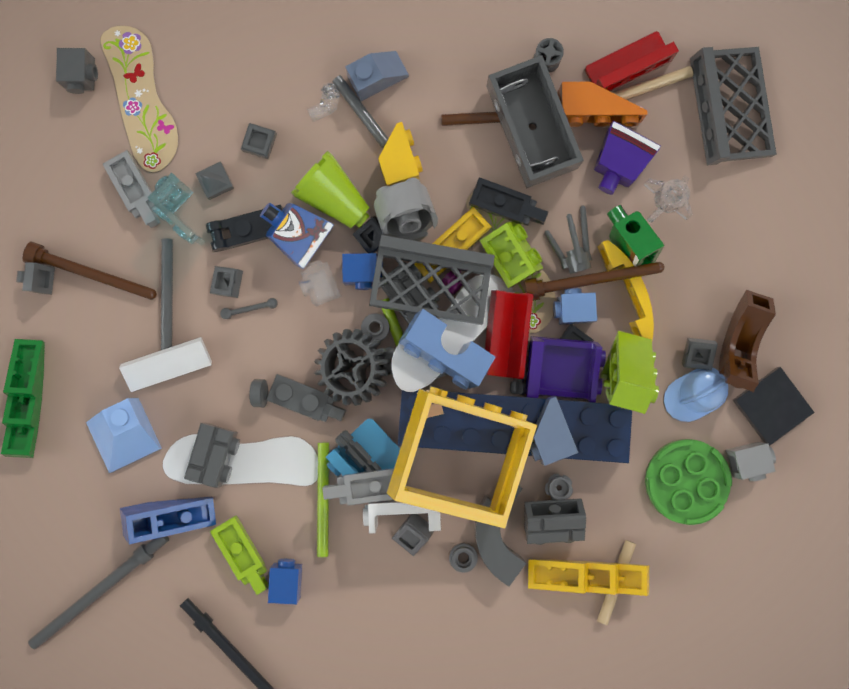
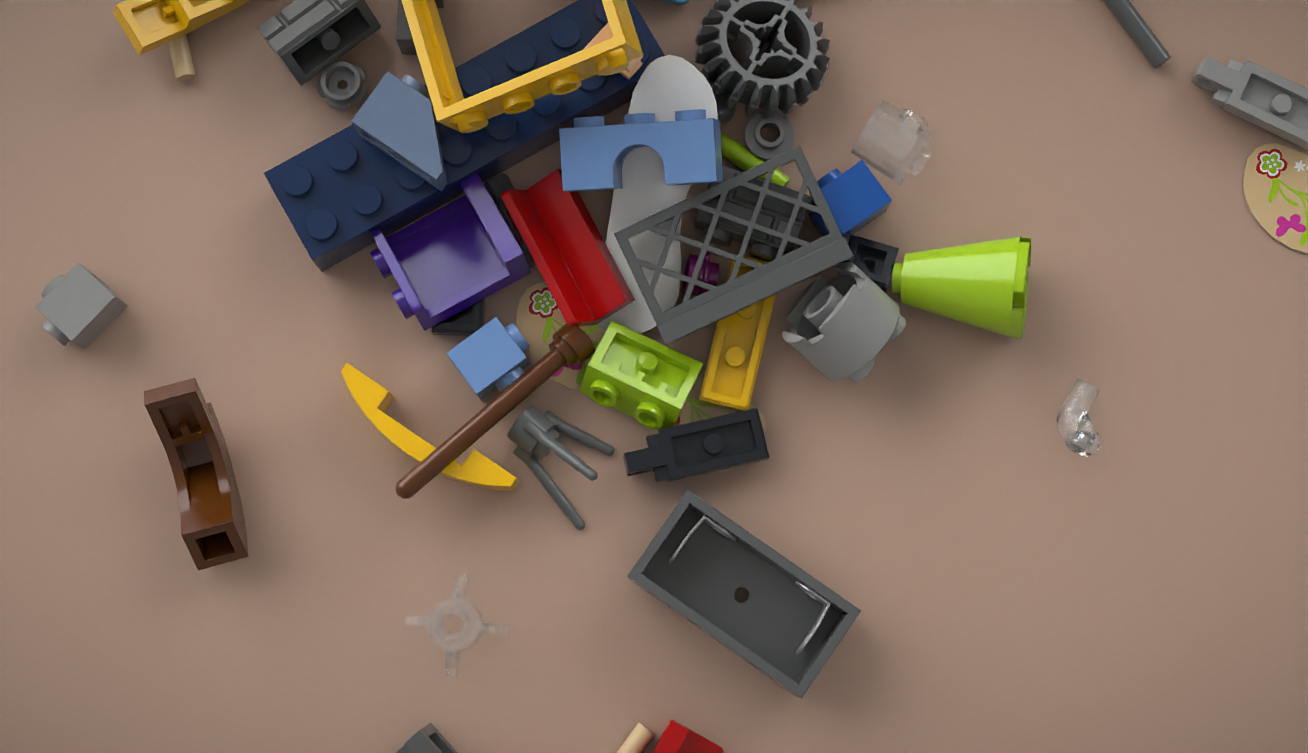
camera: 145 degrees right, 5 degrees down
(167, 198) = (1189, 90): clear light blue bracket -> none
(214, 180) = (1157, 193): dark grey tile -> none
(226, 282) = (1031, 56): dark grey tile -> none
(227, 313) = (998, 17): dark grey hinge -> none
(243, 230) = (1056, 157): black plate -> none
(258, 141) = (1136, 296): dark grey tile -> none
(295, 231) = (982, 190): torso -> none
(360, 110) = (1017, 444): dark grey bar -> none
(375, 73) = (1035, 514): sand blue slope -> none
(397, 158) = (910, 402): yellow slope -> none
(469, 118) = (849, 545): reddish brown bar -> none
(550, 49) = (803, 728): dark grey wheel -> none
(593, 104) = (678, 688): orange slope -> none
(623, 157) = (568, 636): dark purple torso -> none
(630, 373) = (345, 293): lime wedge -> none
(634, 236) = (451, 509): green torso -> none
(688, 481) = (155, 220): bright green tile -> none
(695, 394) = (226, 353): light blue piece -> none
(699, 353) = (258, 416): dark grey tile -> none
(773, 406) = (93, 414): black tile -> none

